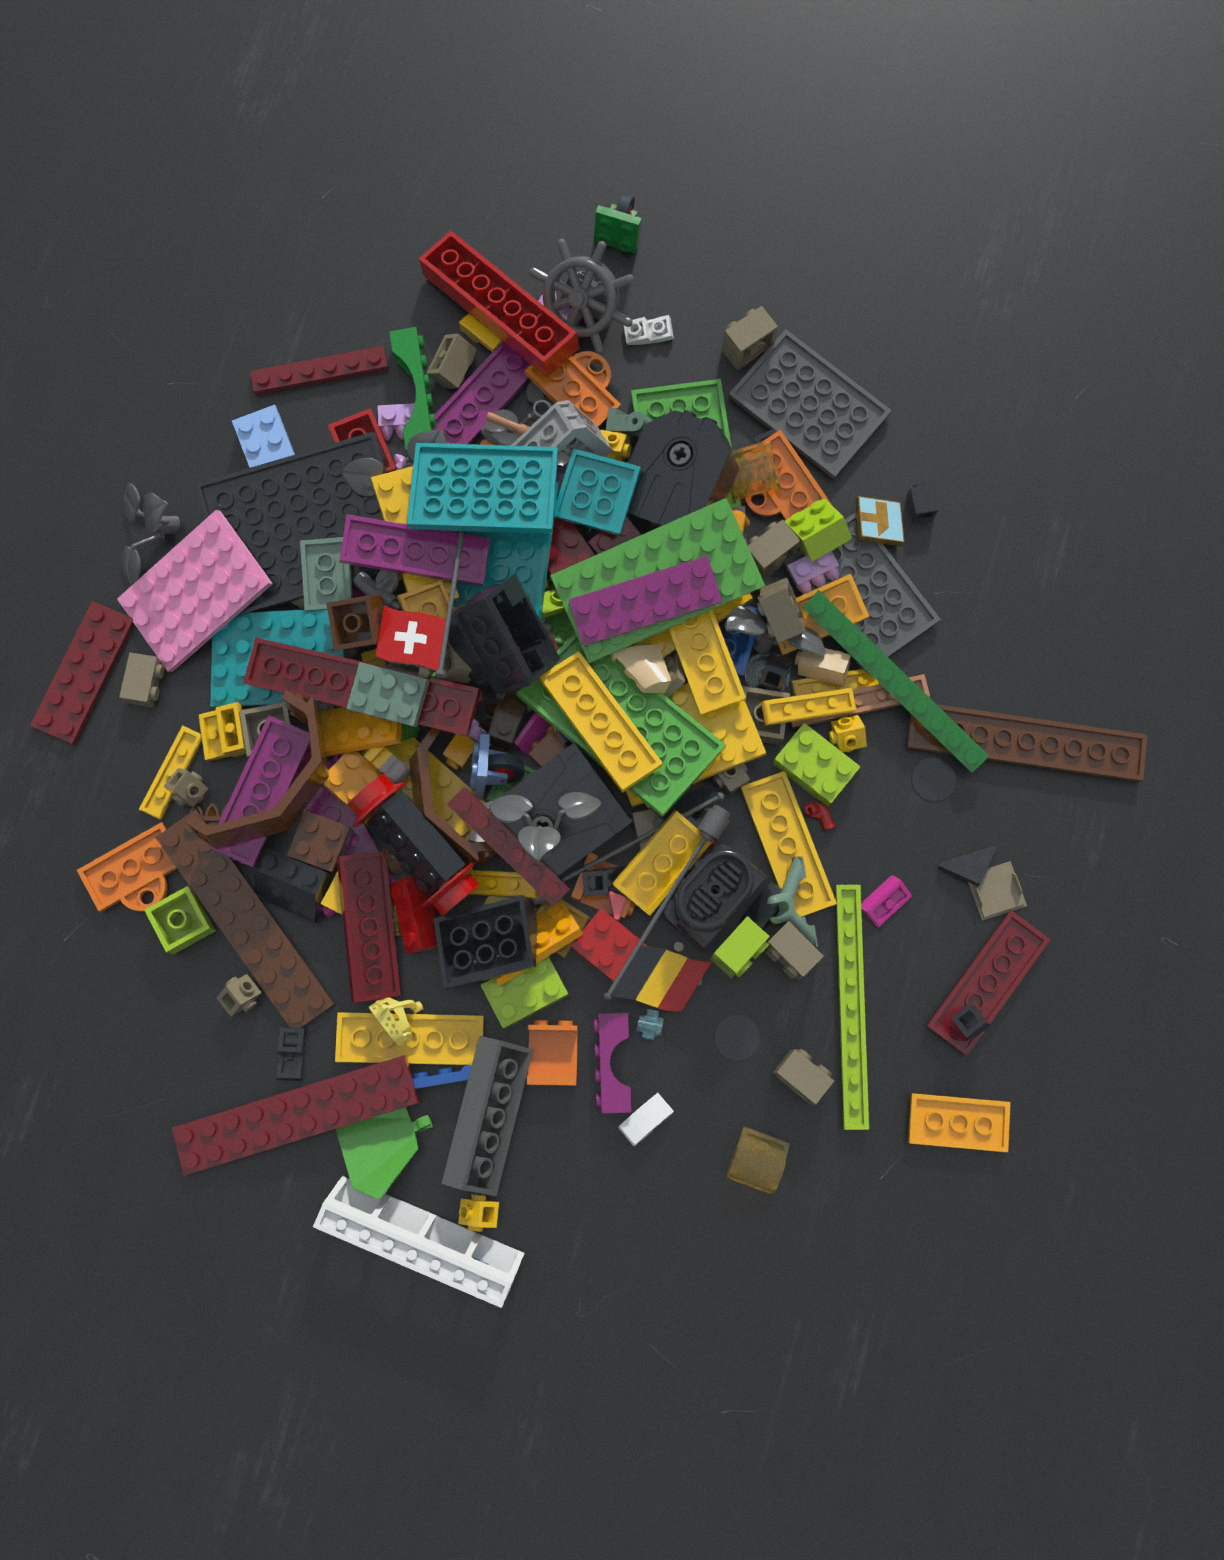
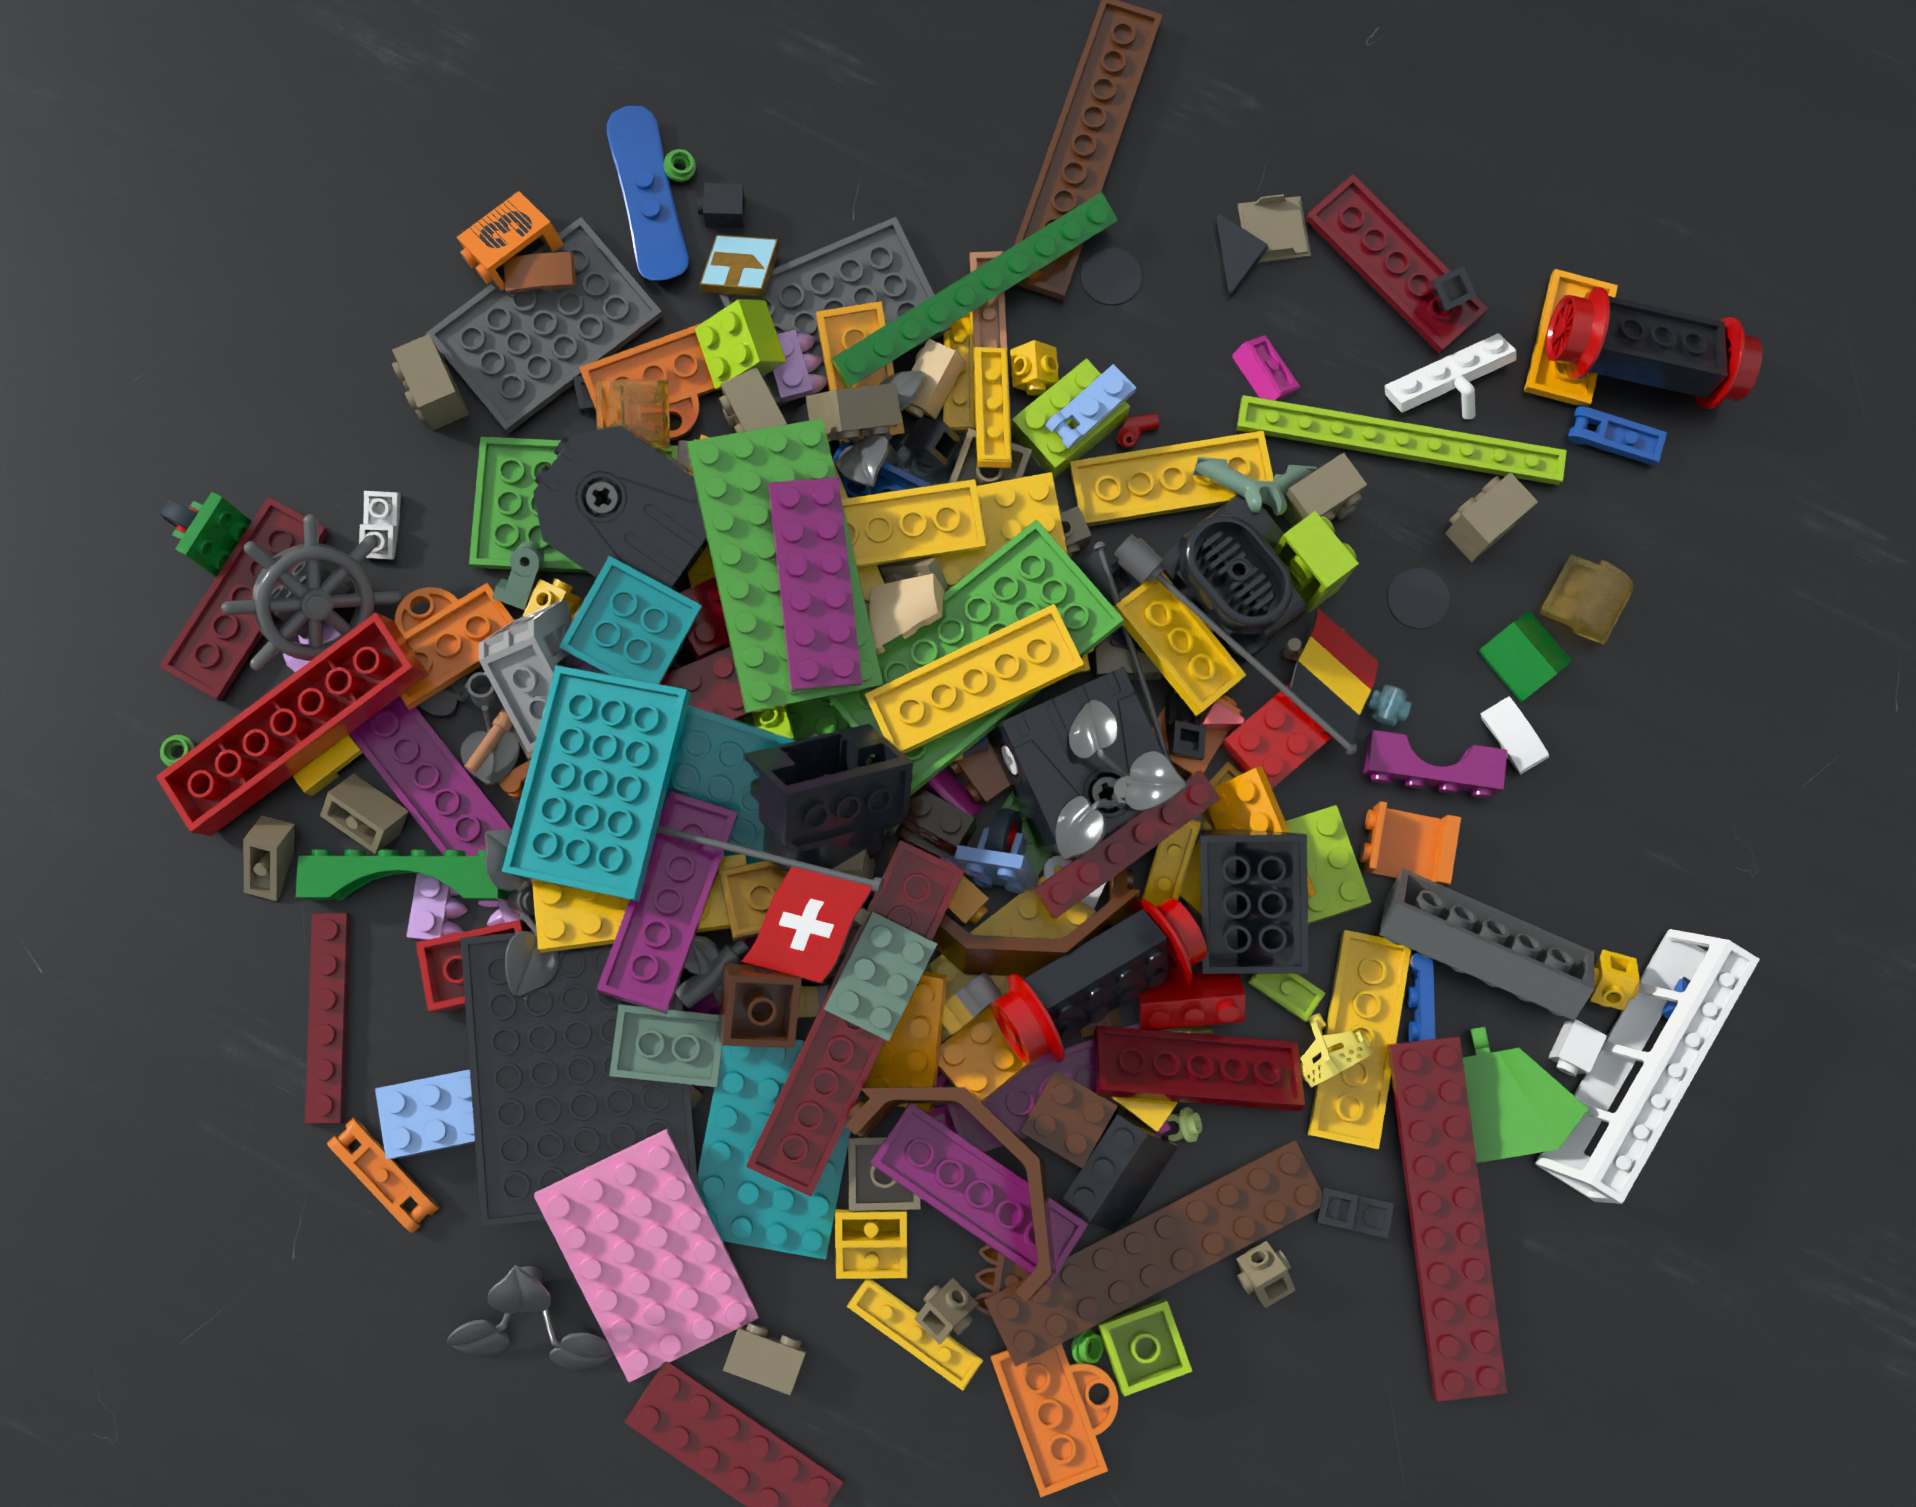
camera: 85 degrees left, 0 degrees up
(171, 886) = (1087, 1347): none -> bright green plate
(221, 426) = (382, 1175): none -> orange plate
(333, 928) = (1189, 1125): none -> yellowish green plate
(414, 310) = (267, 857): none -> dark tan slope
(426, 1194) = (1577, 1048): none -> white brick
(432, 987) = (1290, 992): none -> lime plate
(475, 237) = (171, 744): none -> bright green plate
(539, 249) = (217, 644): none -> dark red plate
(708, 1121) = (1524, 656): none -> green slope
(822, 773) = (1091, 406): none -> light blue plate
(842, 390) = (540, 271): none -> dark orange slope
(864, 362) = (503, 235): none -> orange panel
(889, 1168) = (1617, 435): none -> blue plate
(910, 1036) = (1452, 373): none -> white plate
(919, 451) = (647, 193): none -> blue piece
(951, 463) = (679, 157): none -> bright green plate
(957, 1180) = (1653, 347): none -> brick

